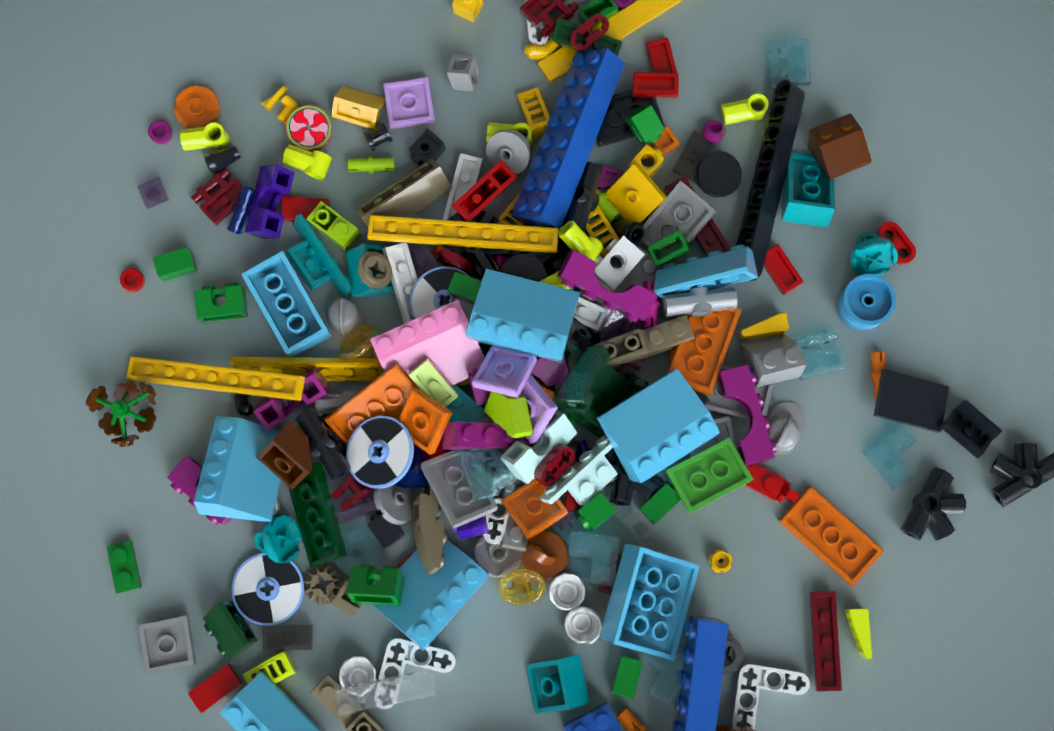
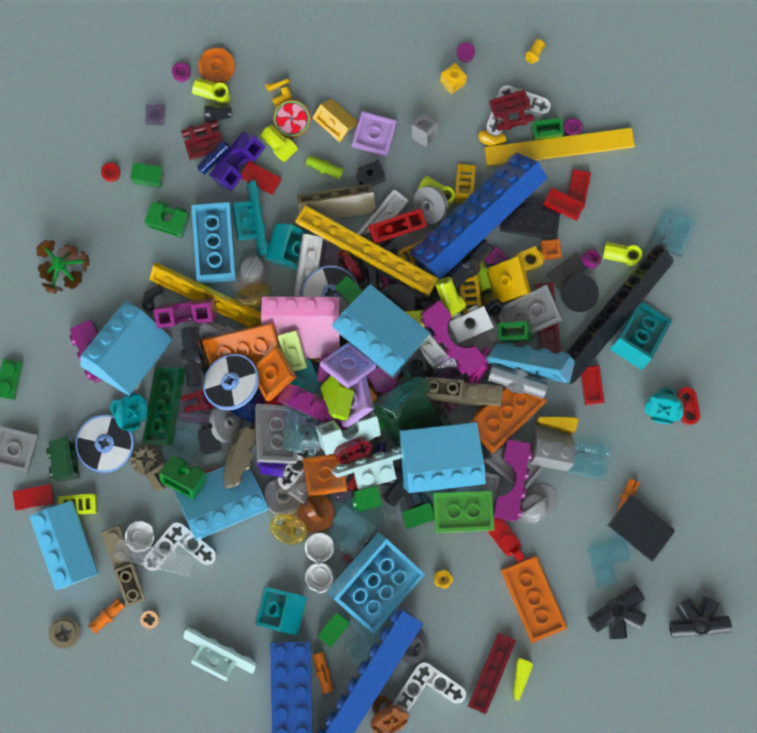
camera: 20 degrees right, 0 degrees up
(216, 378) = (137, 273): yellow tile -> none
(287, 637) = (102, 485): clear smoke plate -> none
(288, 455) = (163, 353): reddish brown slope -> none
(334, 226) = (275, 201): lime slope -> none
(373, 141) = (334, 151): black bush -> none
(381, 266) = (296, 247): dark tan gear -> none
(564, 29) = (525, 145): dark green plate -> none
(585, 28) = (530, 138): dark red beam -> none
(645, 124) = (540, 231): green brick -> none
(839, 146) = (679, 313): reddish brown slope -> none
(879, 299) = (654, 439): dark azure wheel -> none
(970, 428) = (675, 569): black bracket -> none

